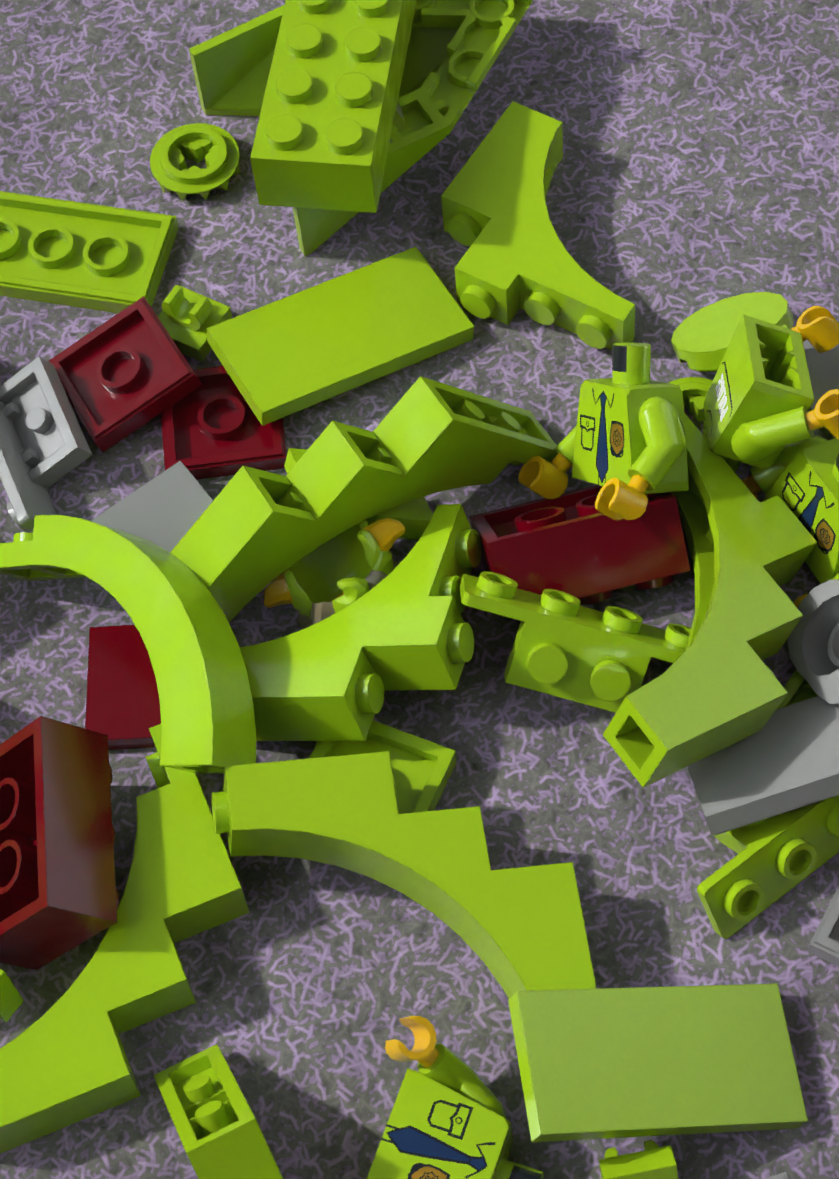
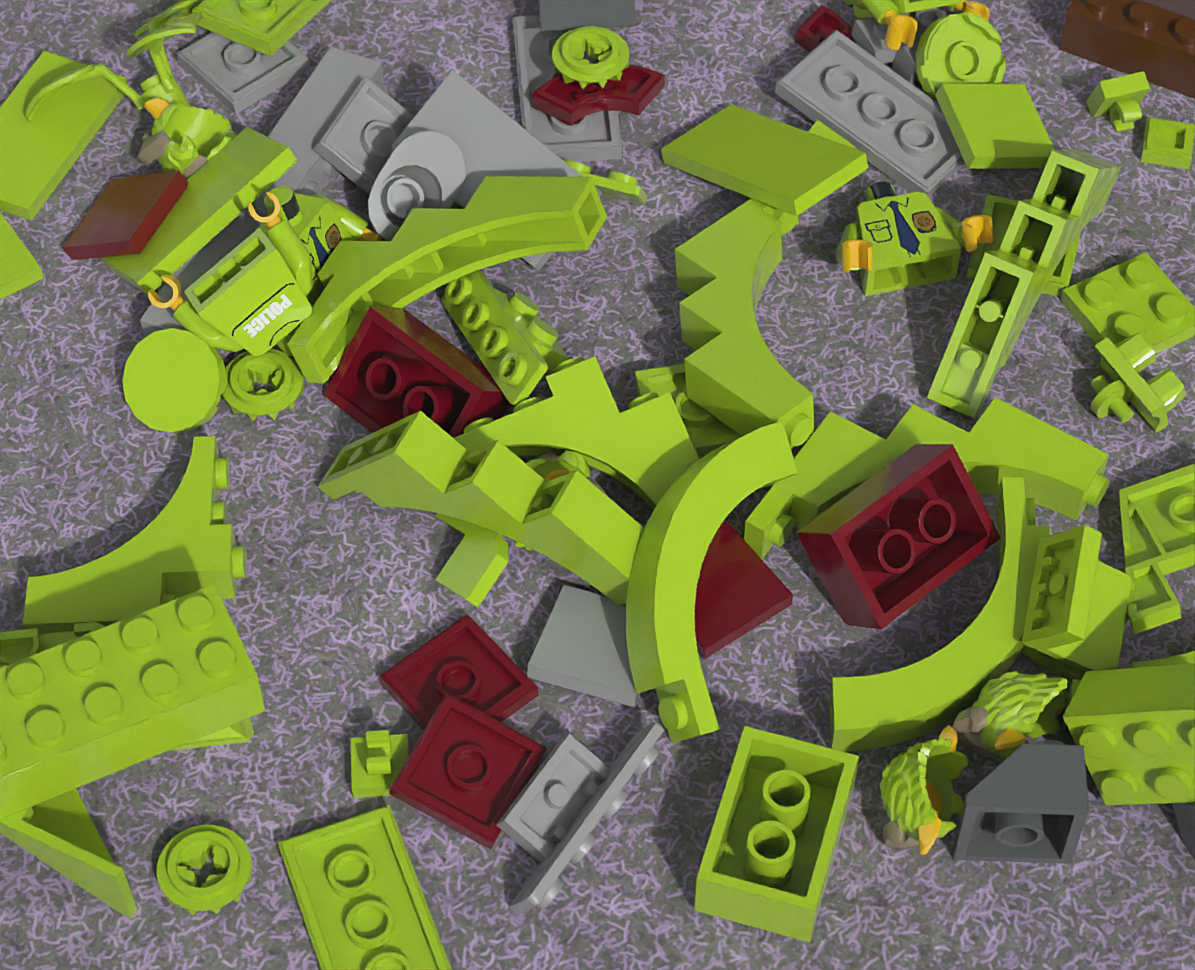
camera: 130 degrees left, 5 degrees down
(339, 335) = (337, 639): lime tile -> none
(623, 439) = (334, 359): lime torso -> none

